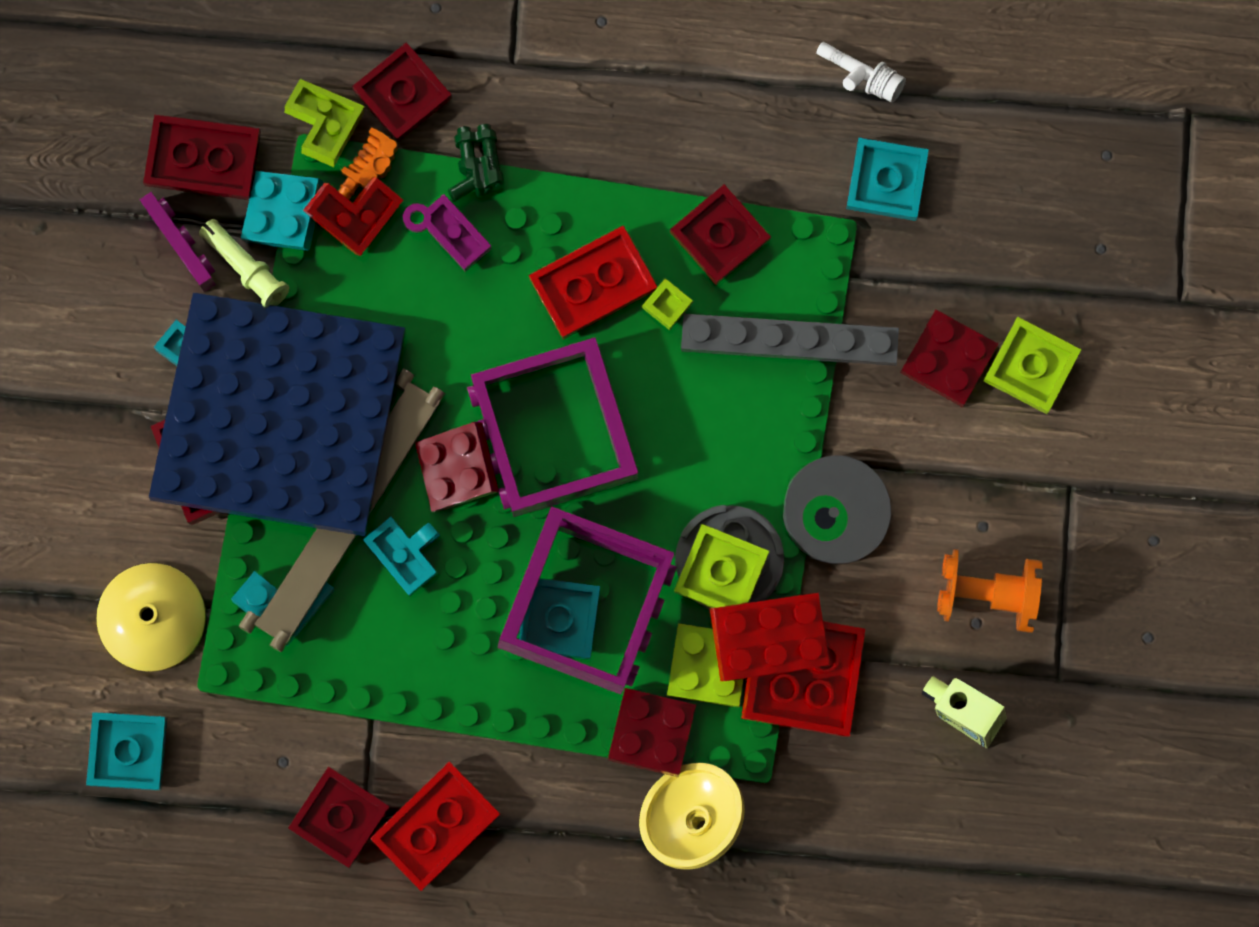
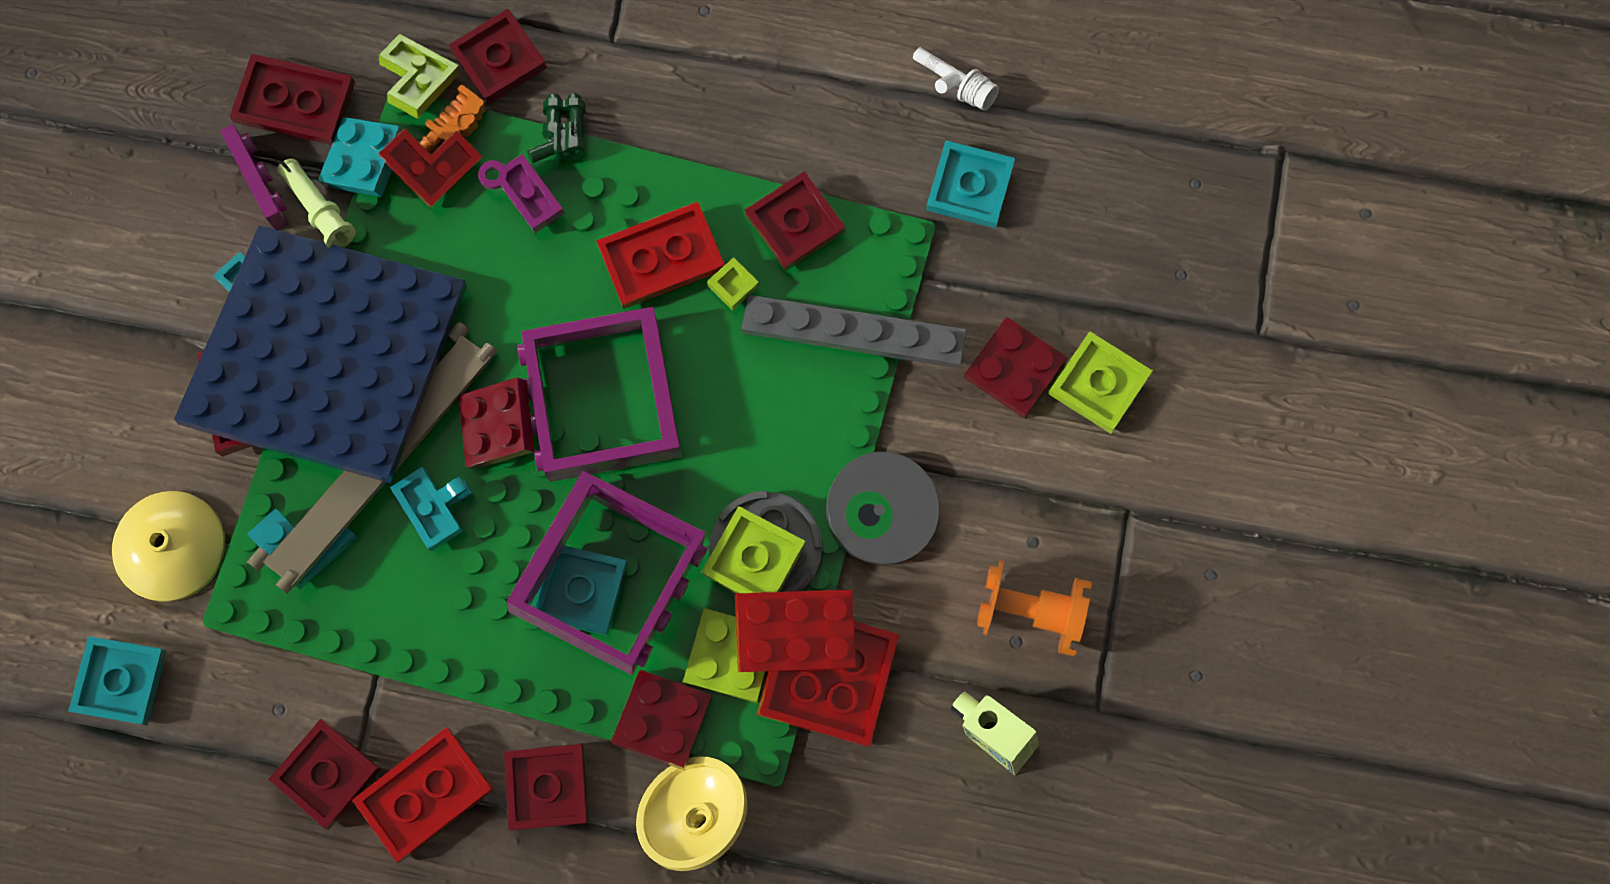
camera: 10 degrees right, 5 degrees down
(550, 807) = (546, 787): none -> dark red plate

